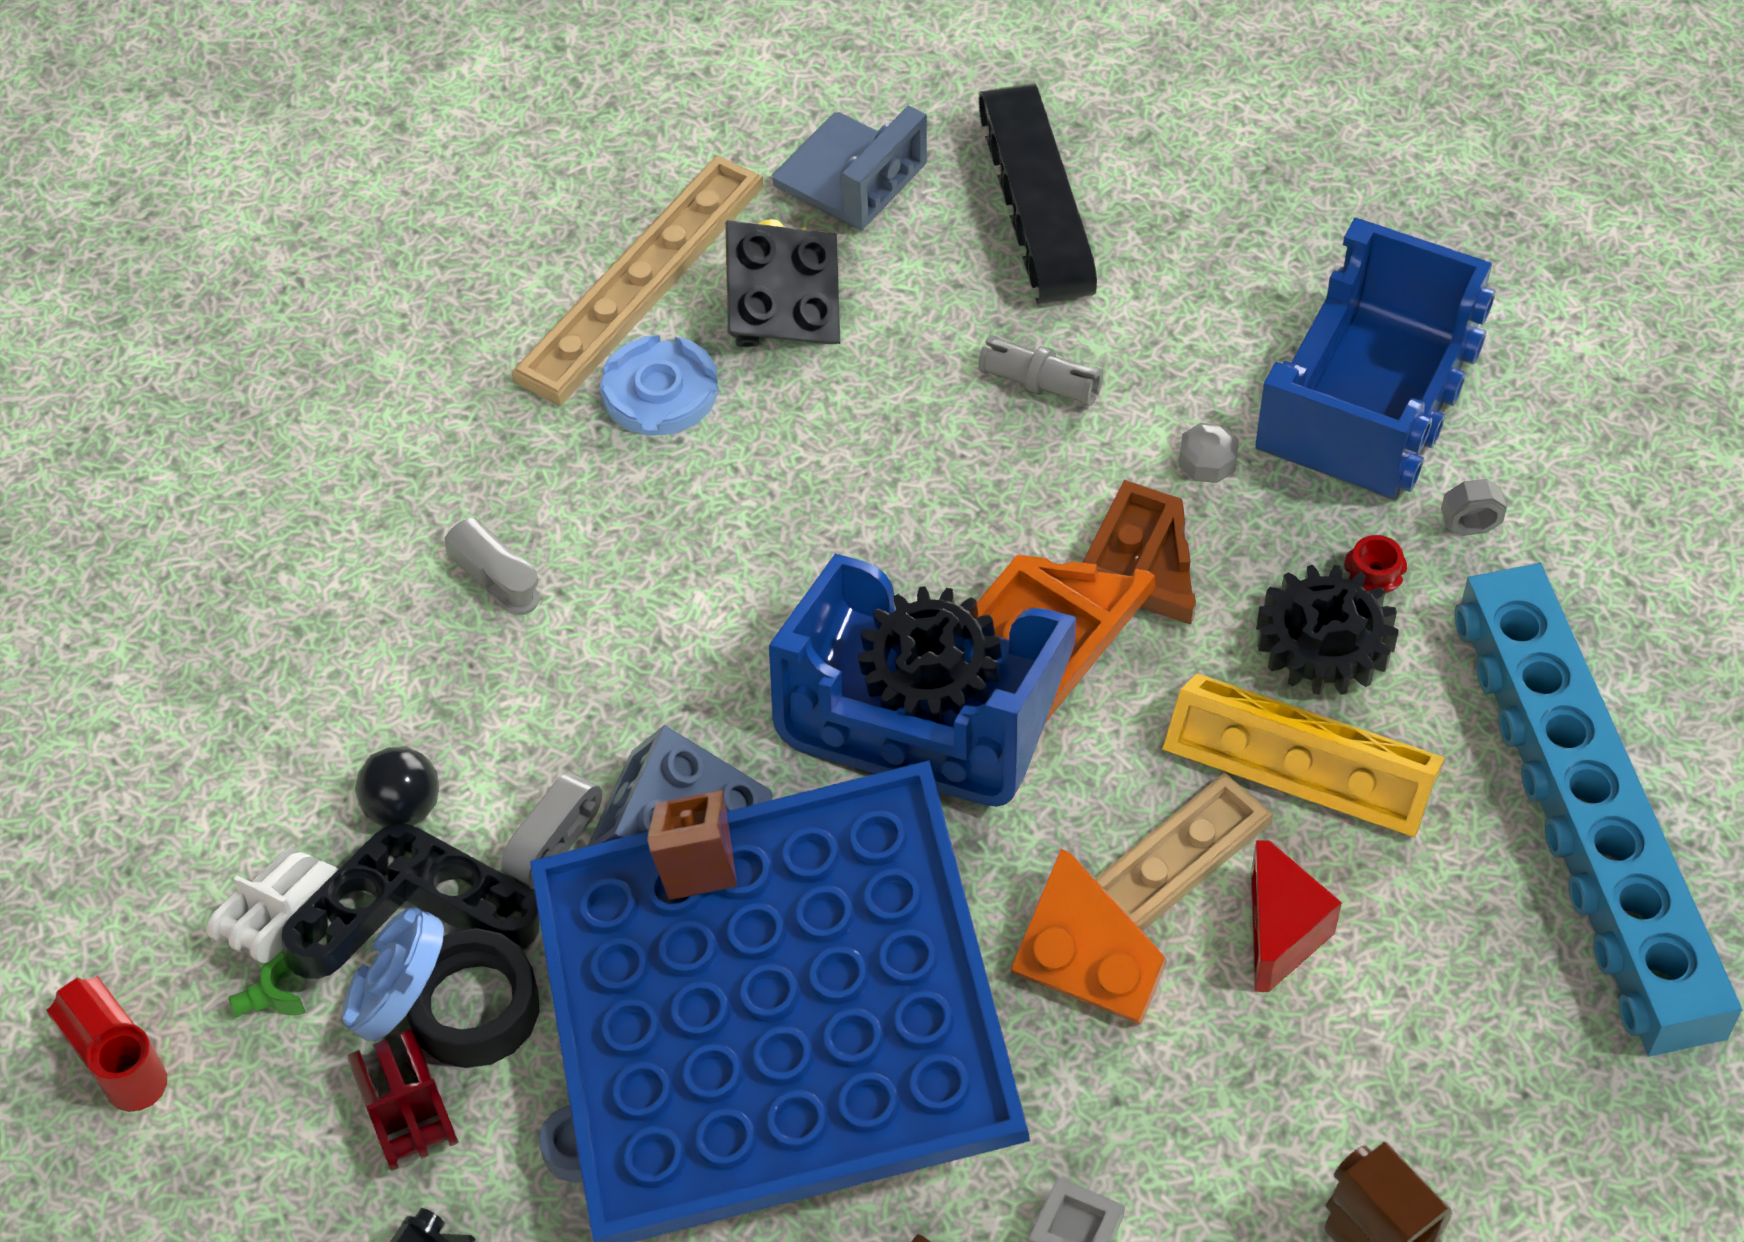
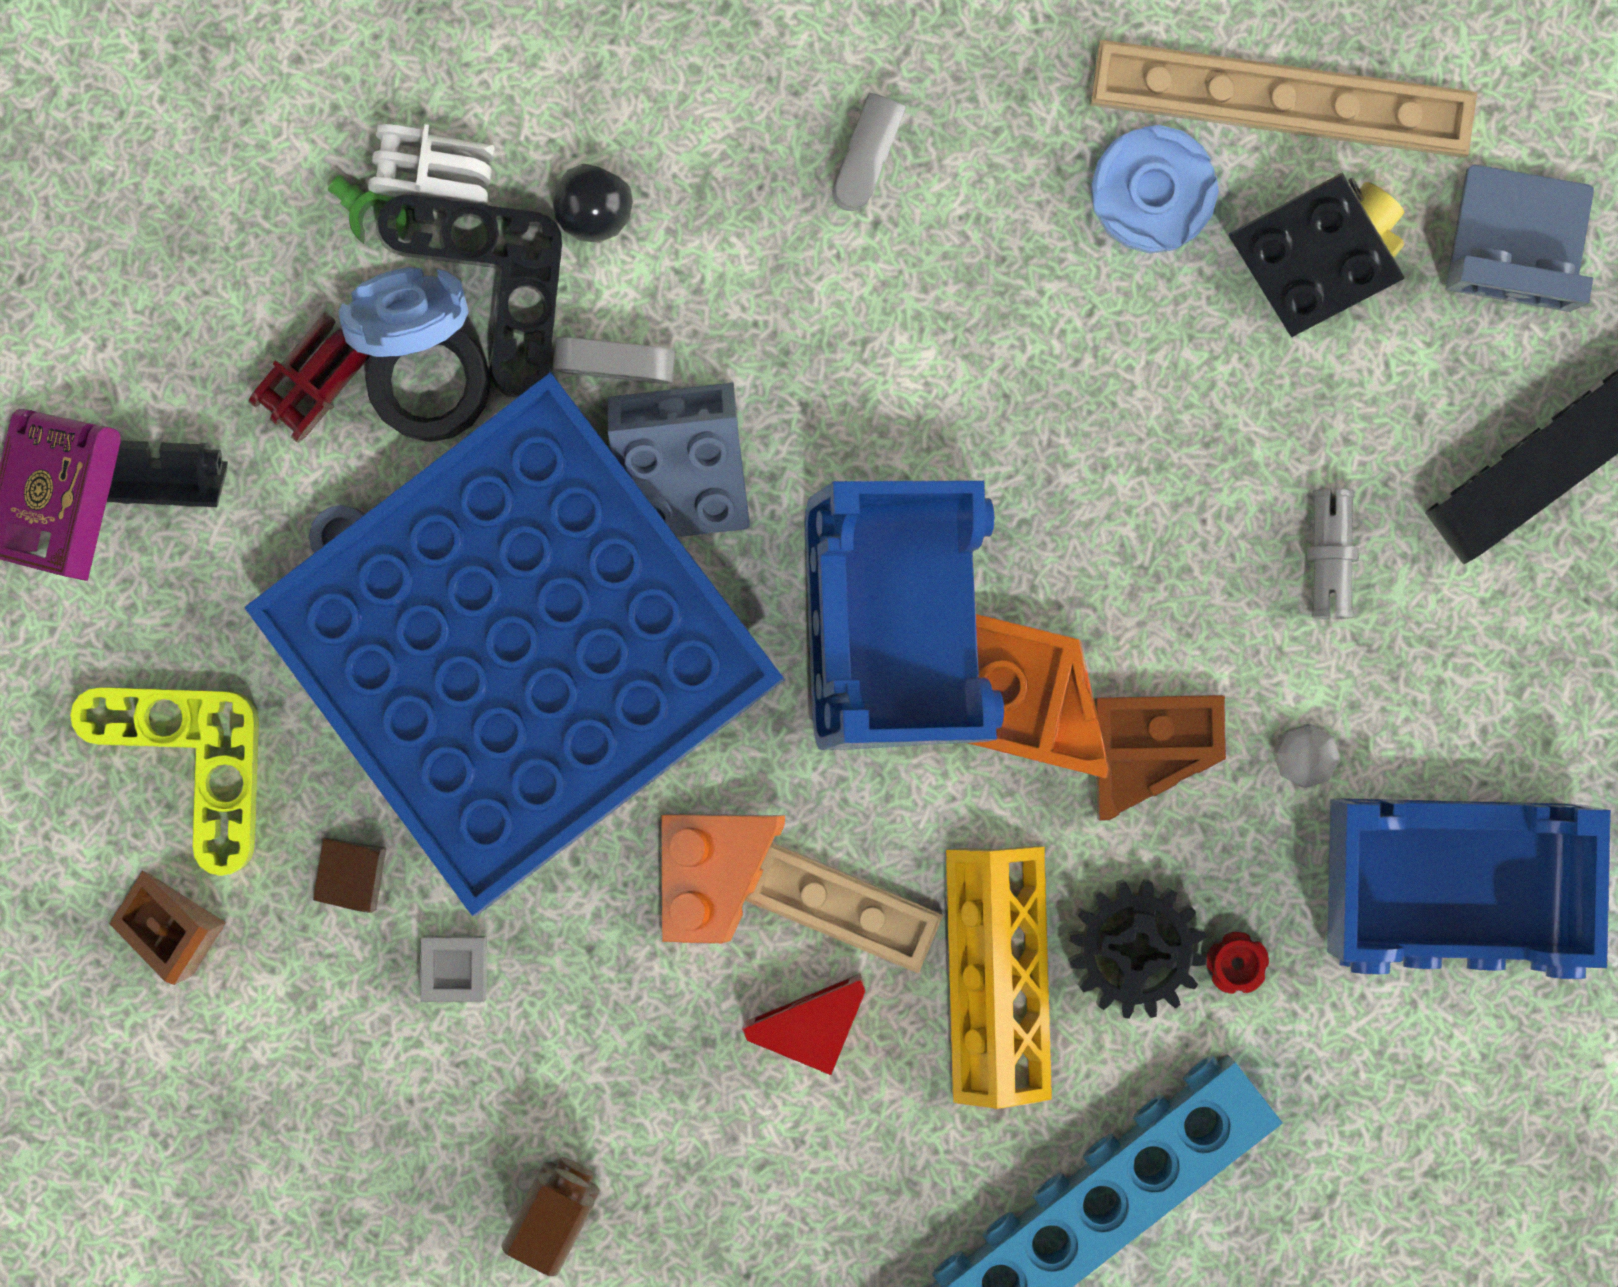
camera: 65 degrees right, 35 degrees up
(108, 1043) = (249, 98): red piece -> none
(692, 845) = (612, 510): dark orange slope -> none
(930, 655) = (927, 587): black gear -> none
(1474, 507) = (1344, 1031): light grey tile -> none

